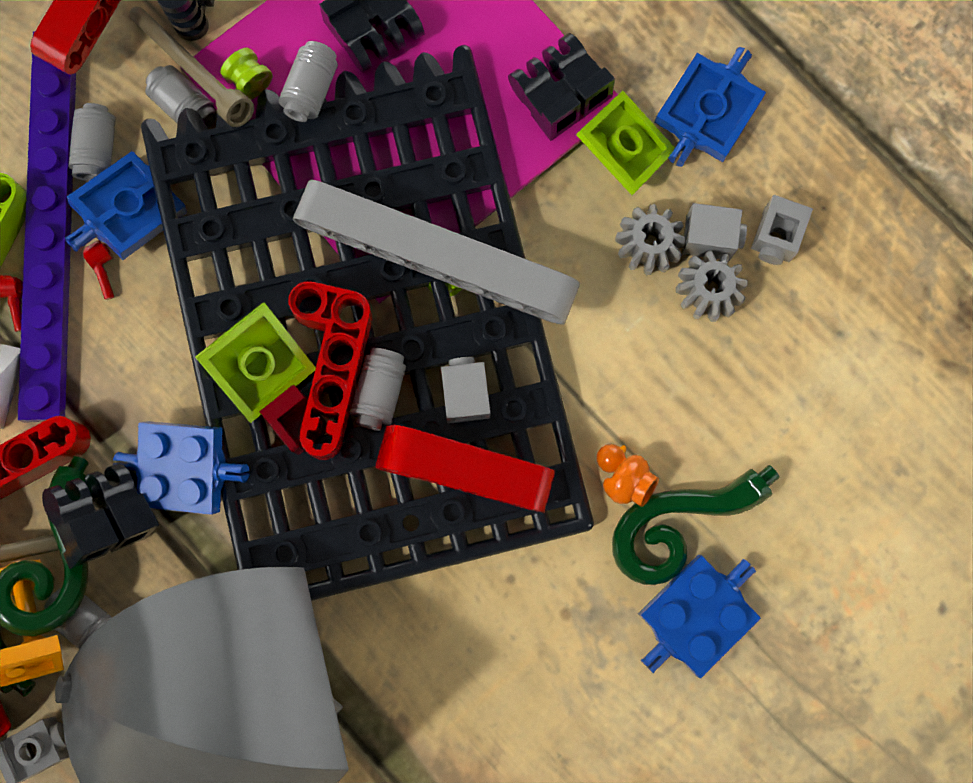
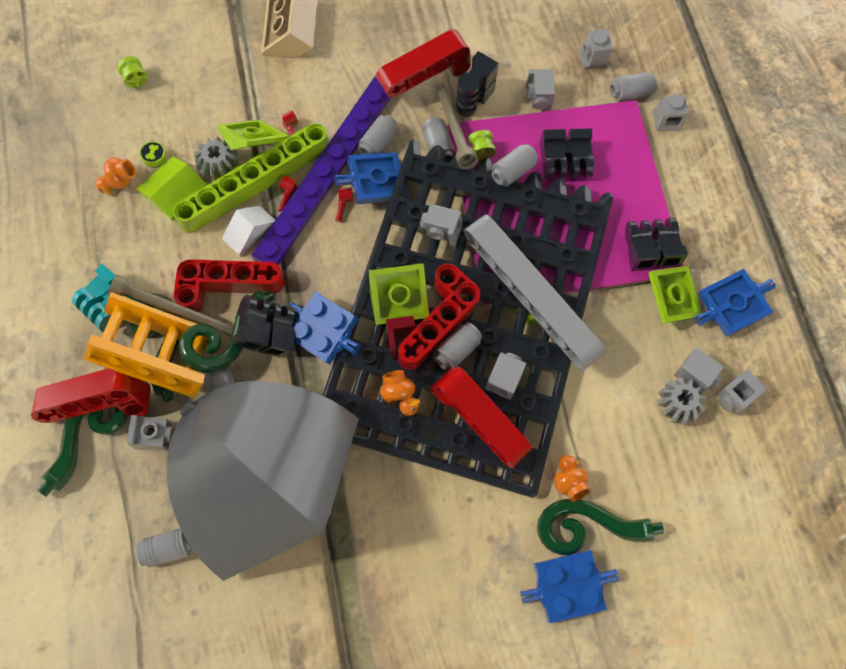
camera: 25 degrees right, 10 degrees down
(257, 226) = (442, 223): none -> light grey brick
(334, 493) = (397, 388): none -> orange animal
(638, 229) = (661, 365): light grey gear -> none

